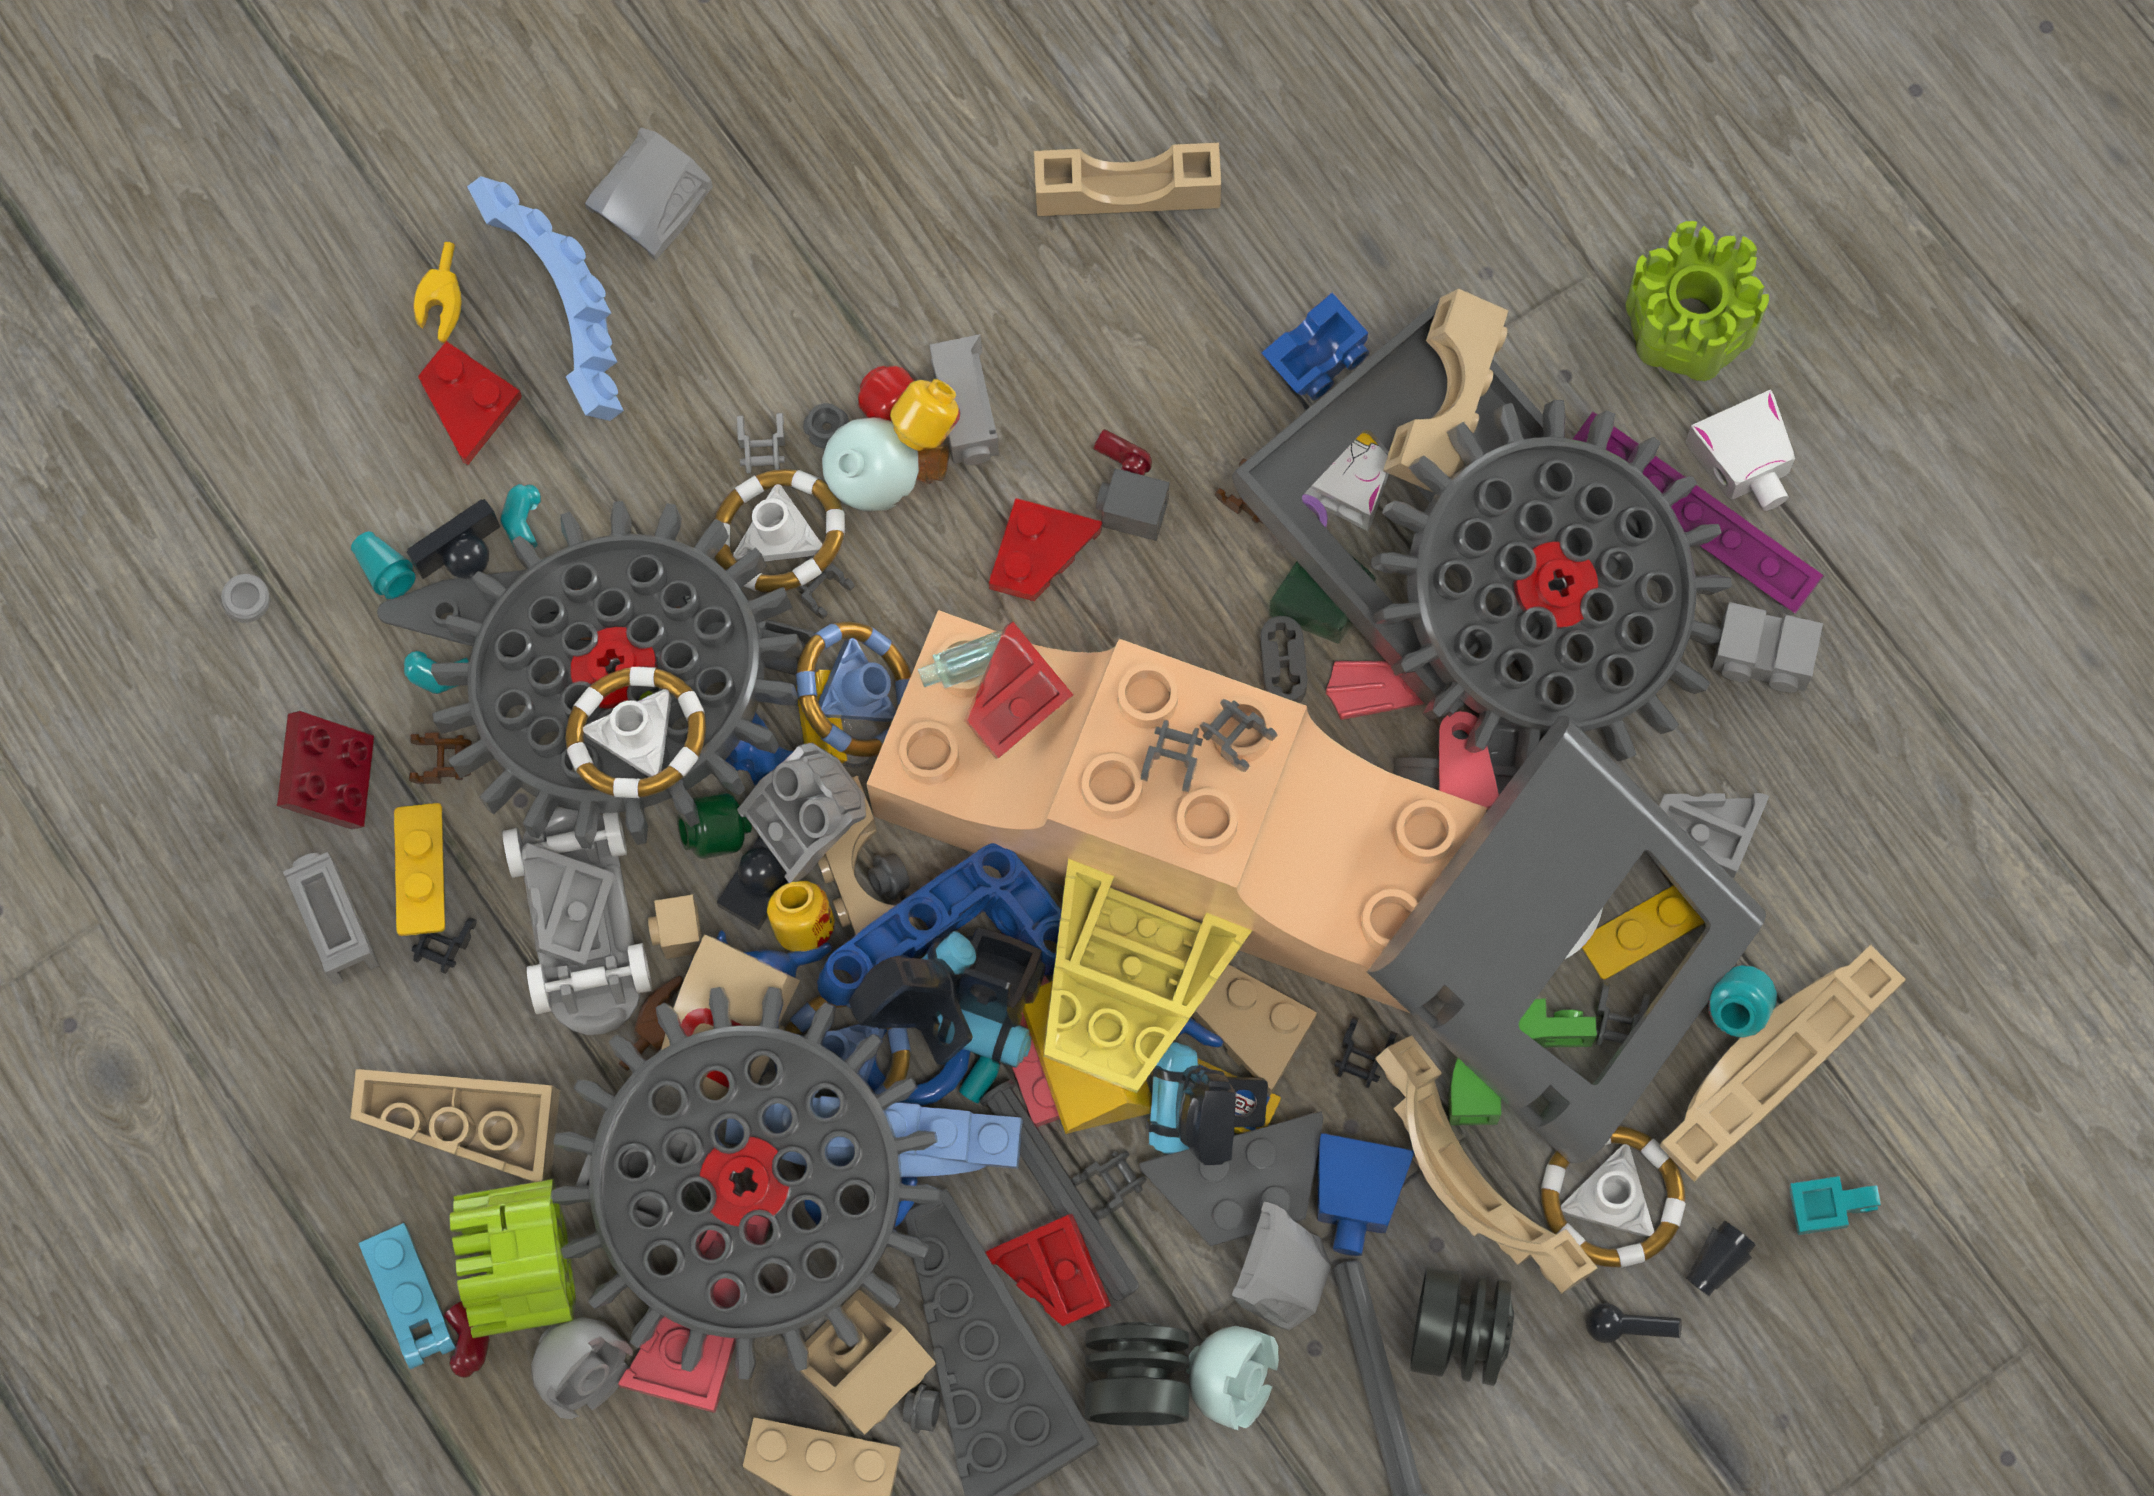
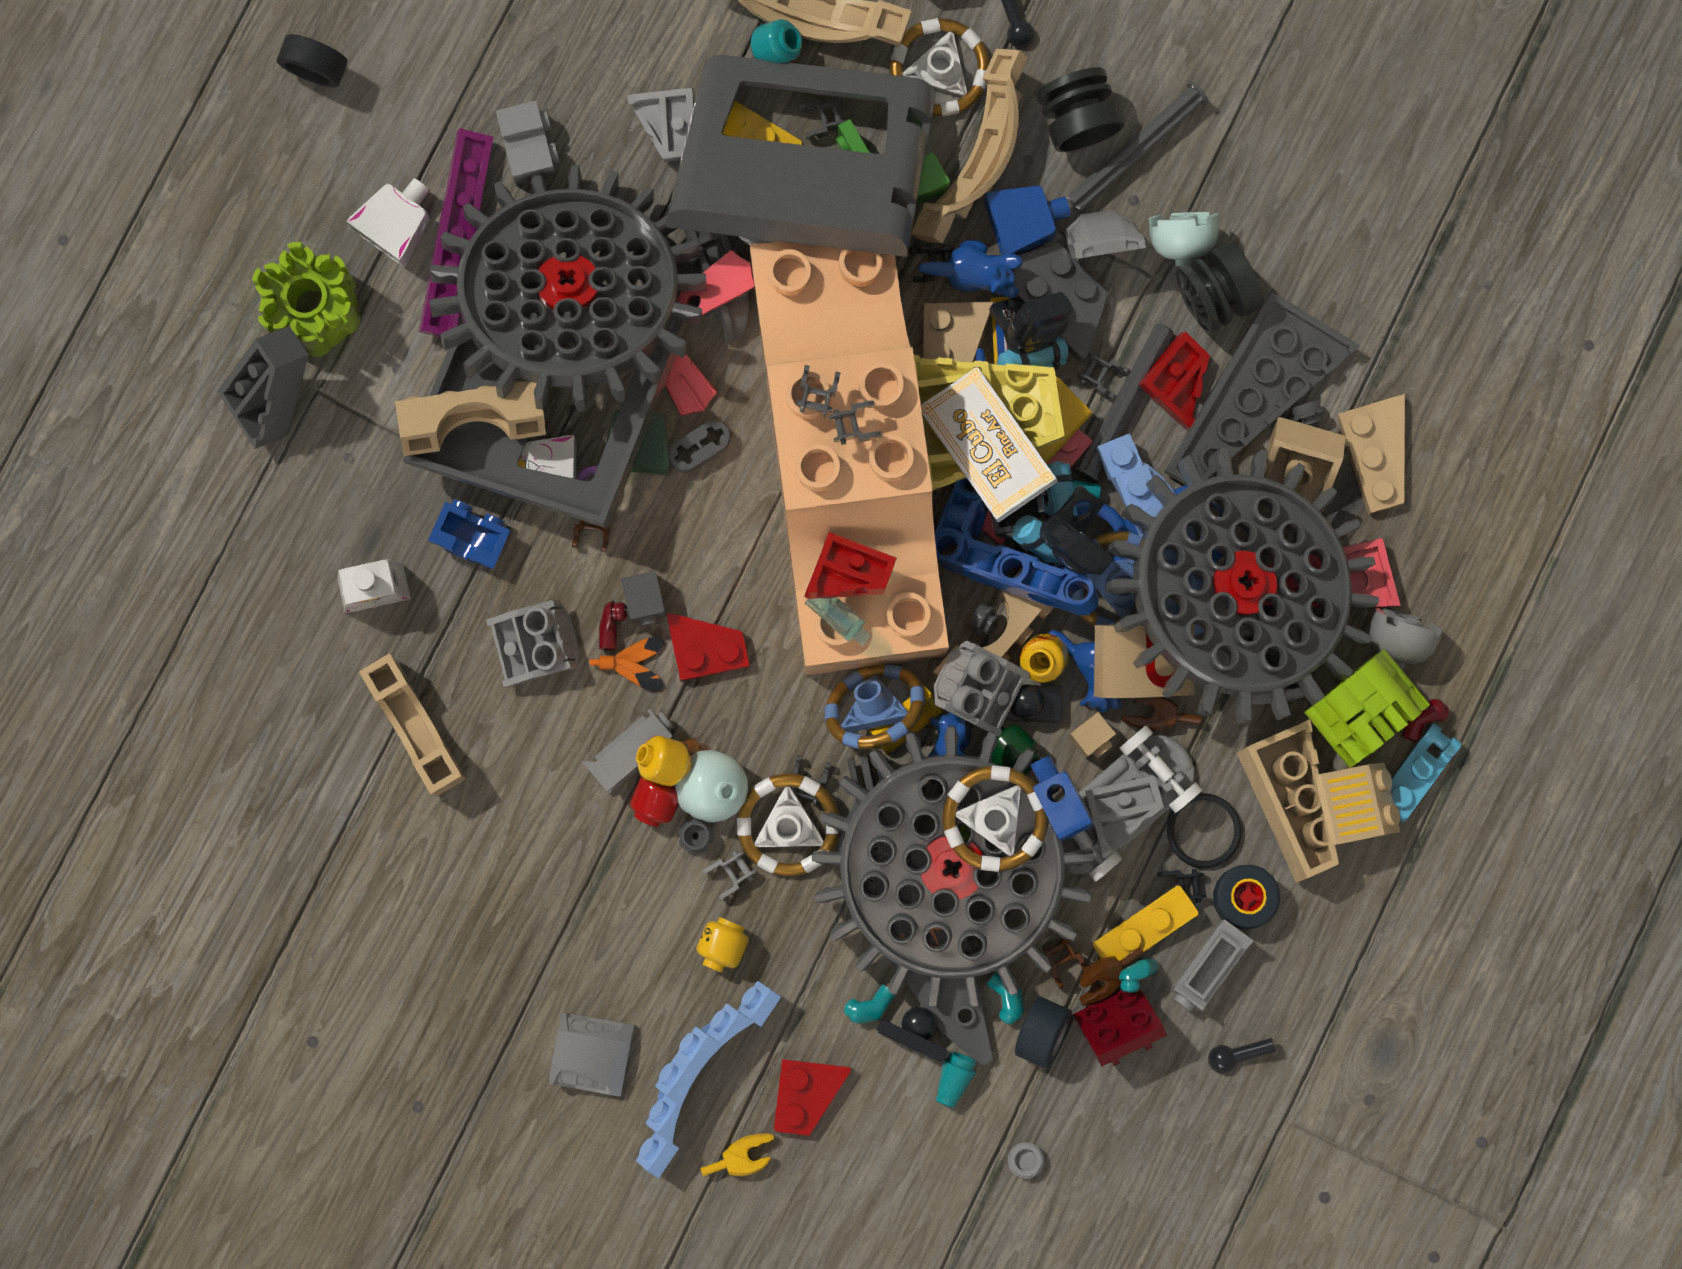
camera: 125 degrees left, 10 degrees up
(218, 881) = (1223, 1058): none -> black bar
(370, 682) = (1043, 1032): none -> black wheel
(370, 990) = (1254, 888): none -> black wheel
(372, 827) = (1141, 969): none -> teal arm
(392, 792) = (1107, 972): none -> reddish brown hand
(408, 1184) = (1358, 803): none -> tan slope
(448, 1016) = (1215, 862): none -> black tyre
(603, 804) = (1068, 815): none -> blue torso
(684, 387) = (722, 944): none -> yellow head
(1067, 451) = (626, 663): none -> orange piece
(1083, 952) = (988, 444): none -> white tile
(1149, 361) = (534, 642): none -> light grey slope
(1317, 209) = (372, 585): none -> white torso
(1324, 1086) = (973, 269): none -> blue animal
(1608, 202) = (266, 386): none -> dark grey wedge
(1994, 447) = (312, 60): none -> black tyre

